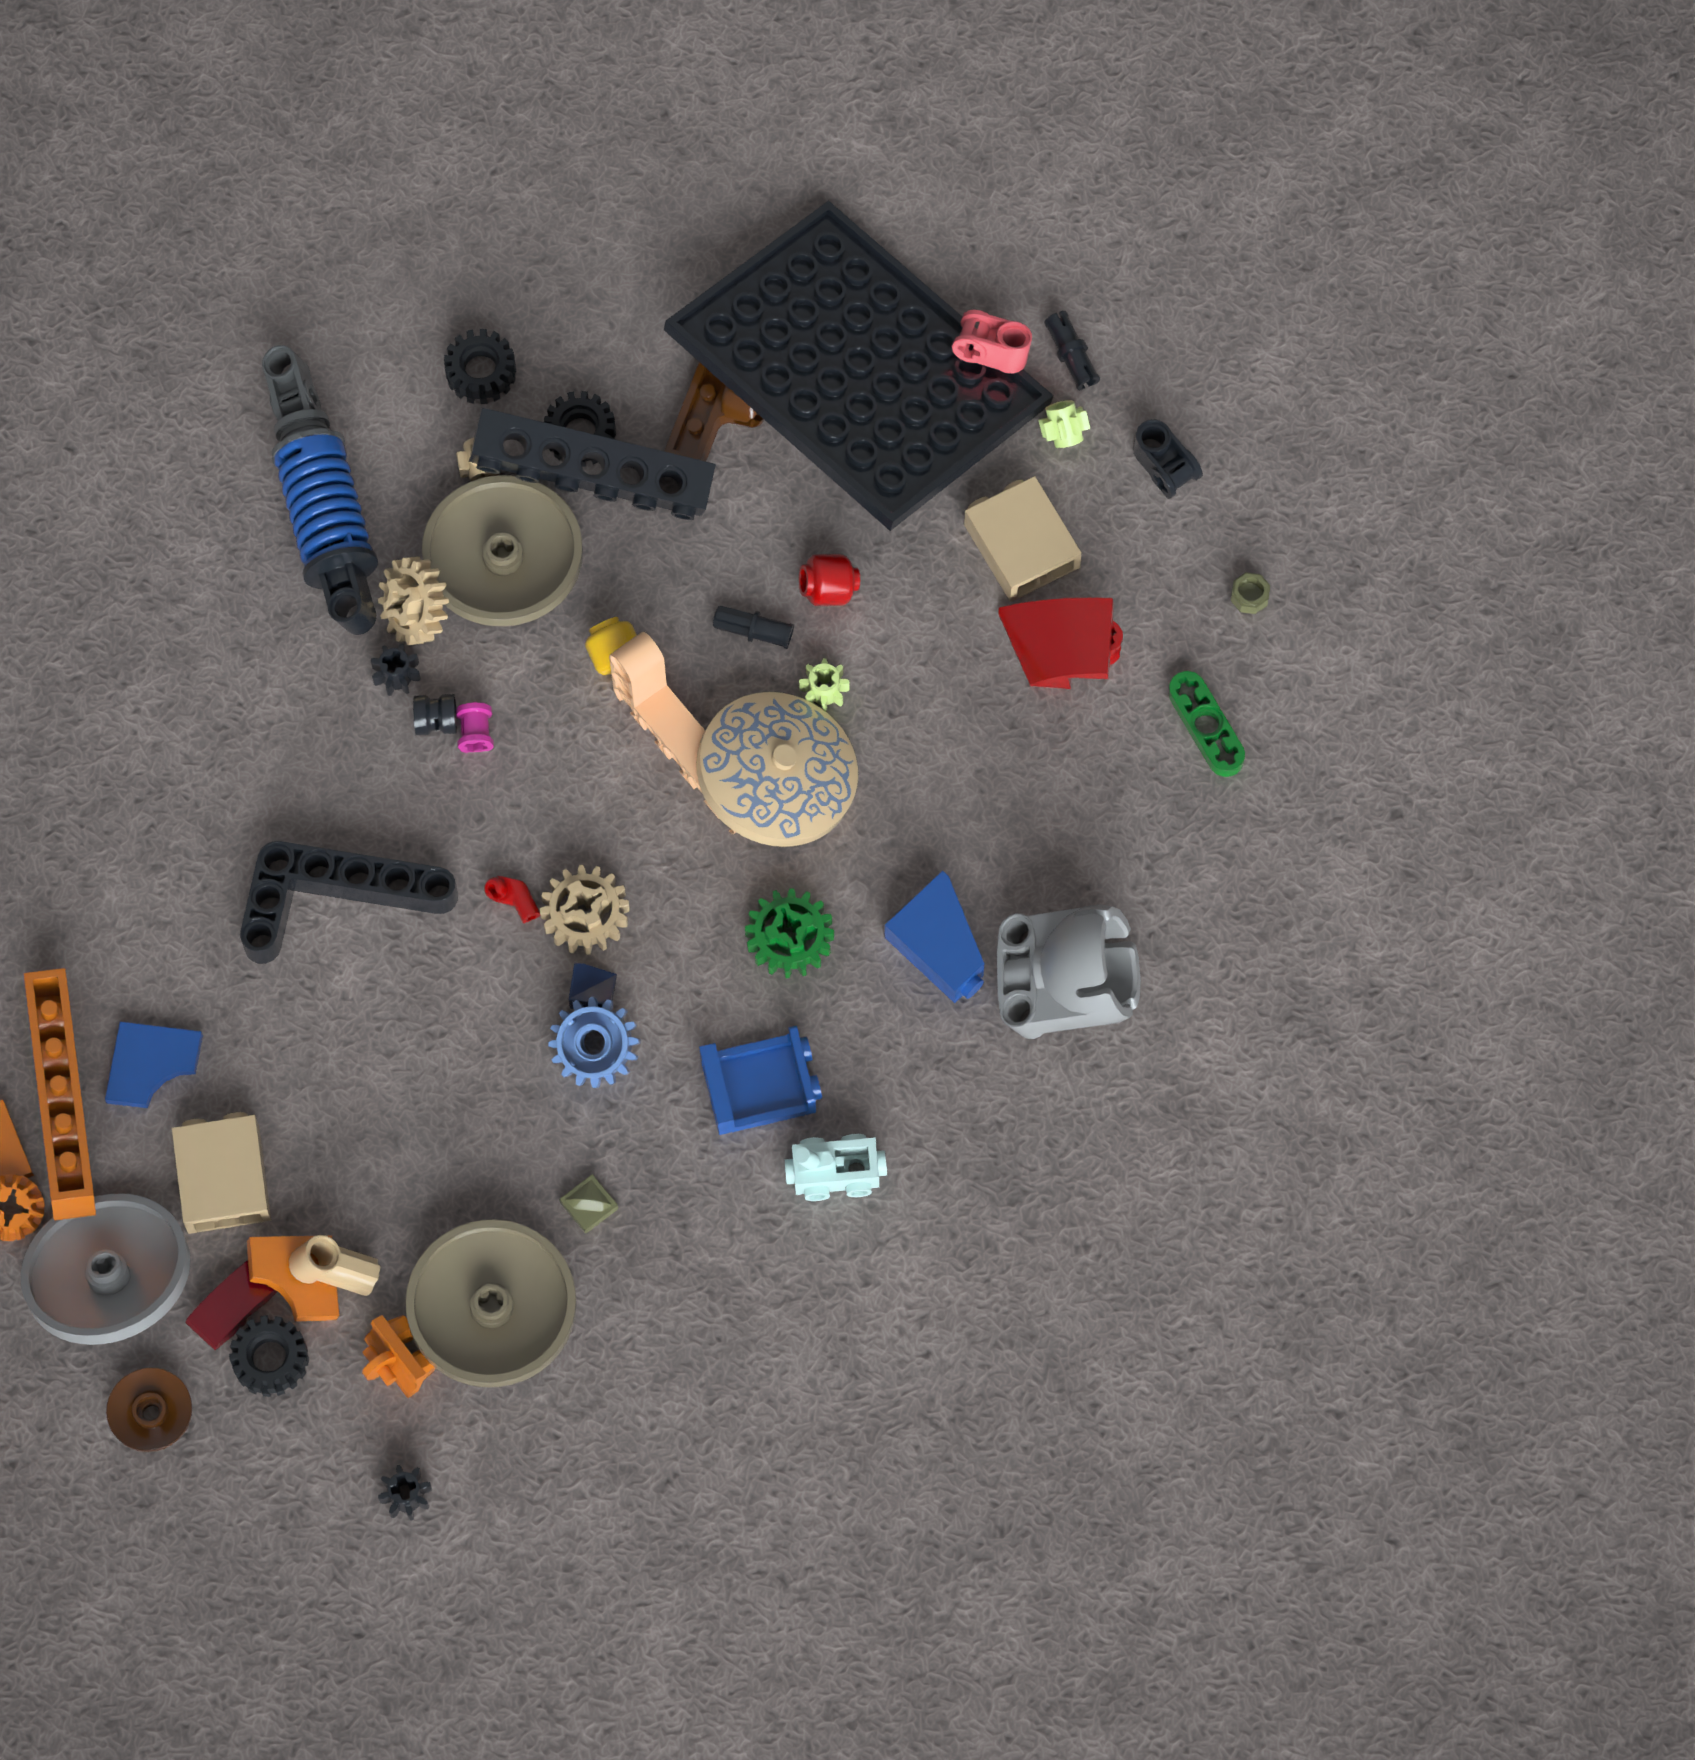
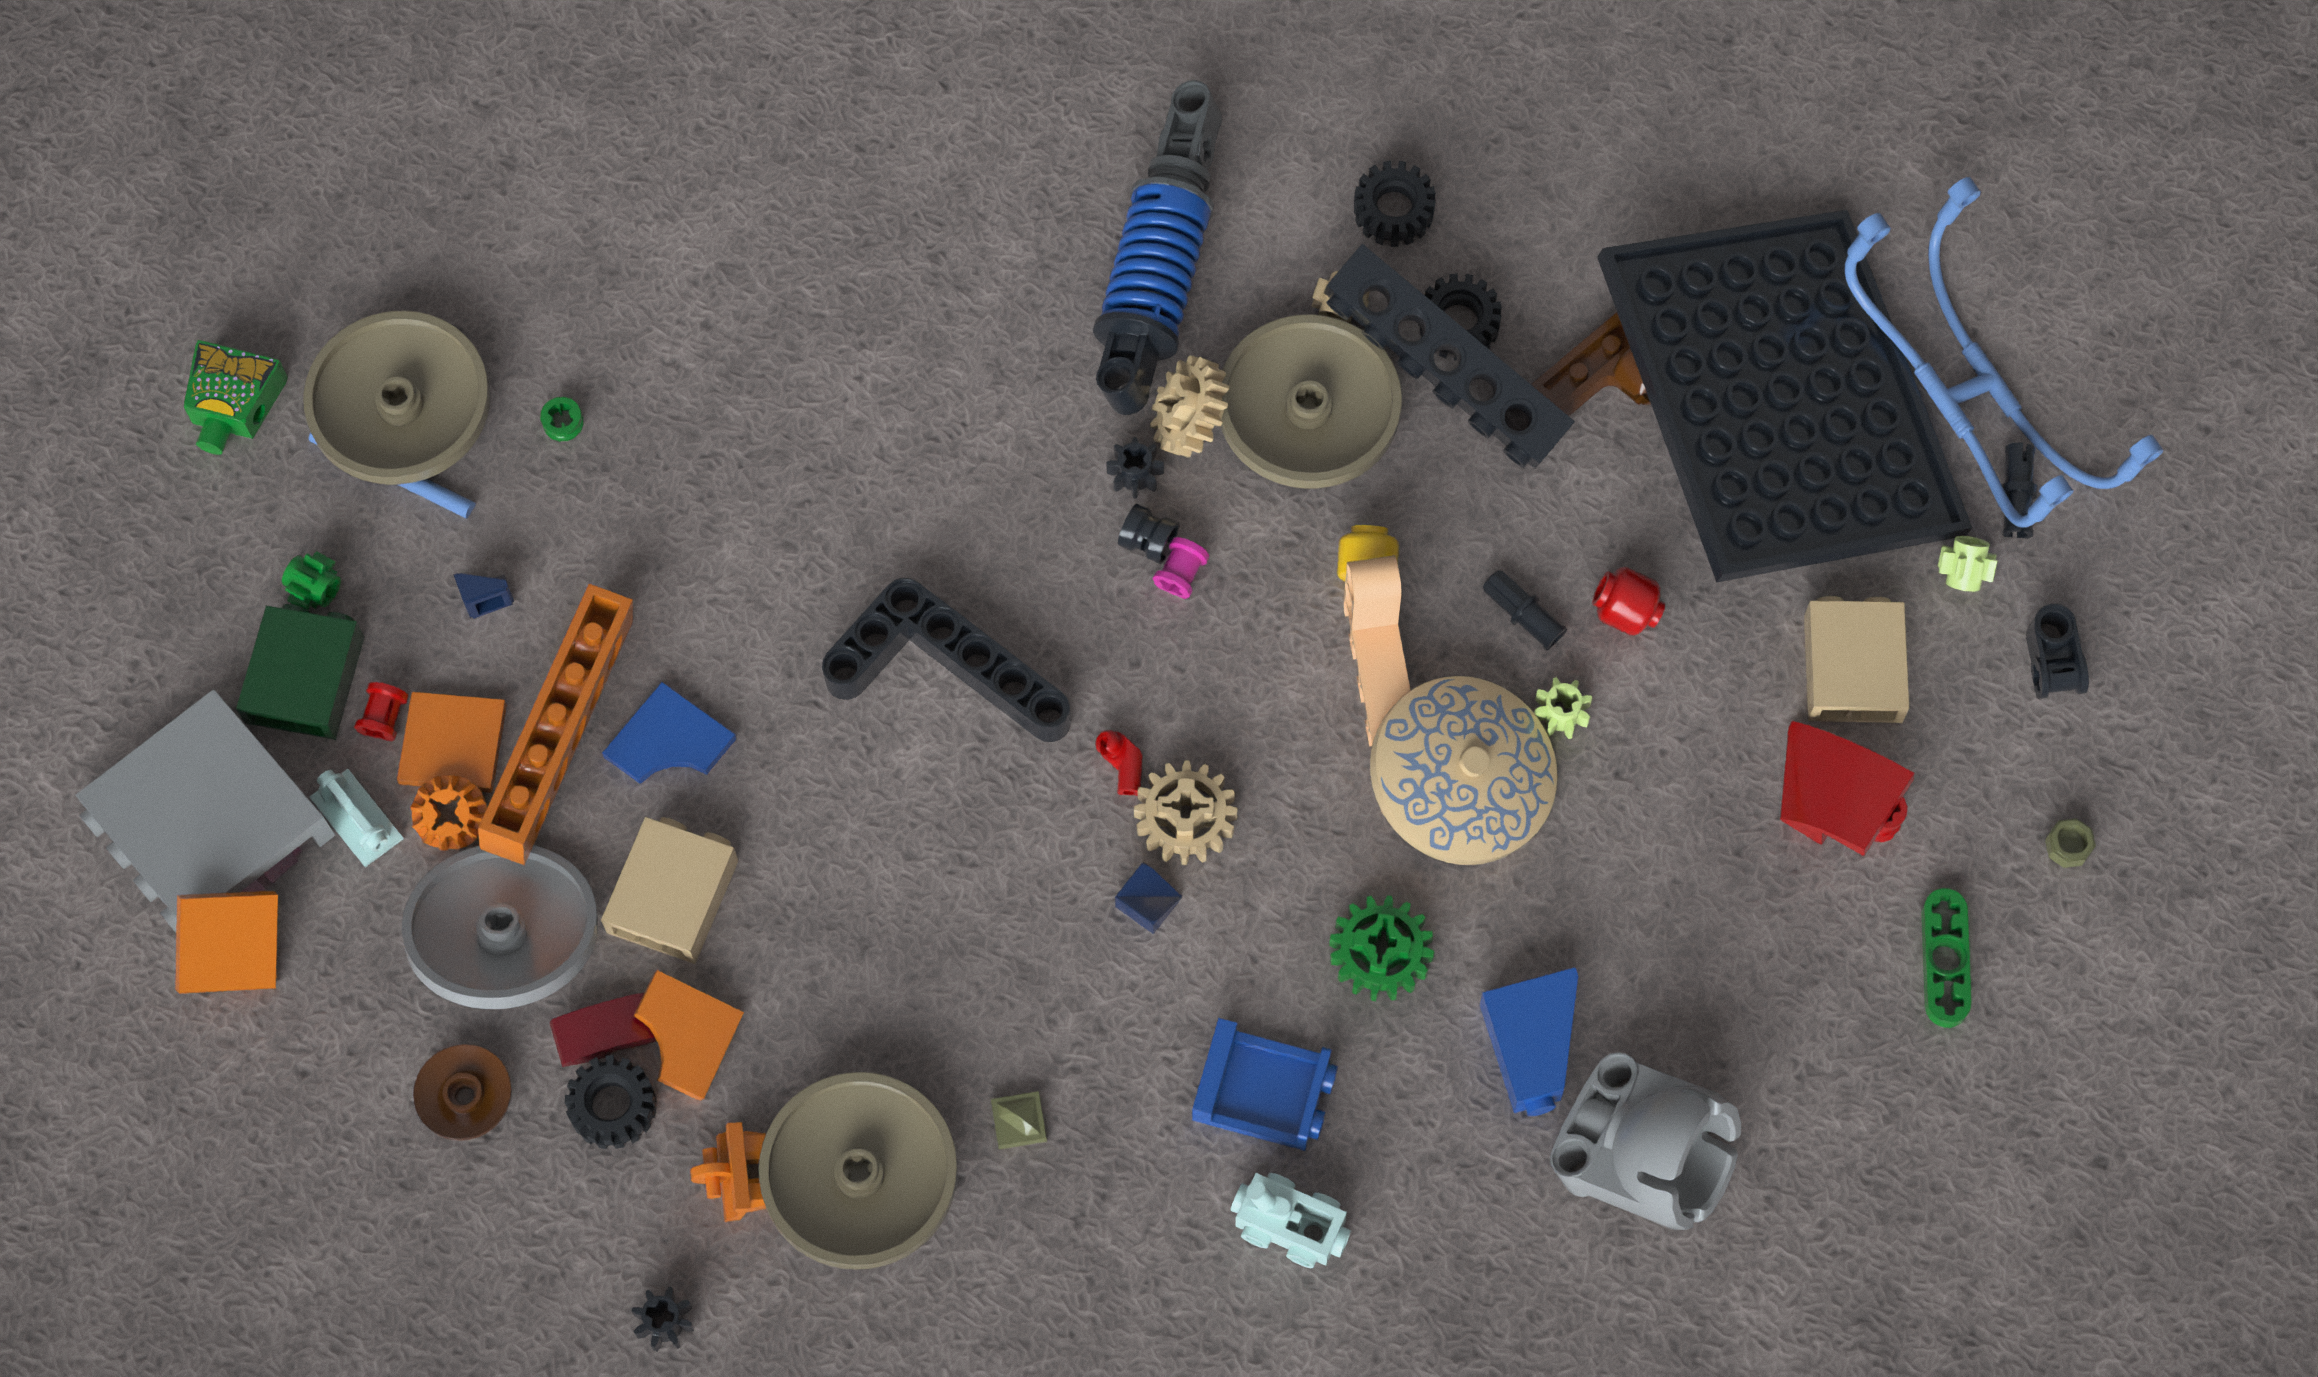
camera: 30 degrees right, 0 degrees up
(336, 1266) = (728, 1047): tan piece -> none
(572, 1036) = (1090, 951): medium blue gear -> none
(996, 342) = (1938, 441): coral piece -> none
(1003, 277) = (1988, 379): none -> medium blue bar

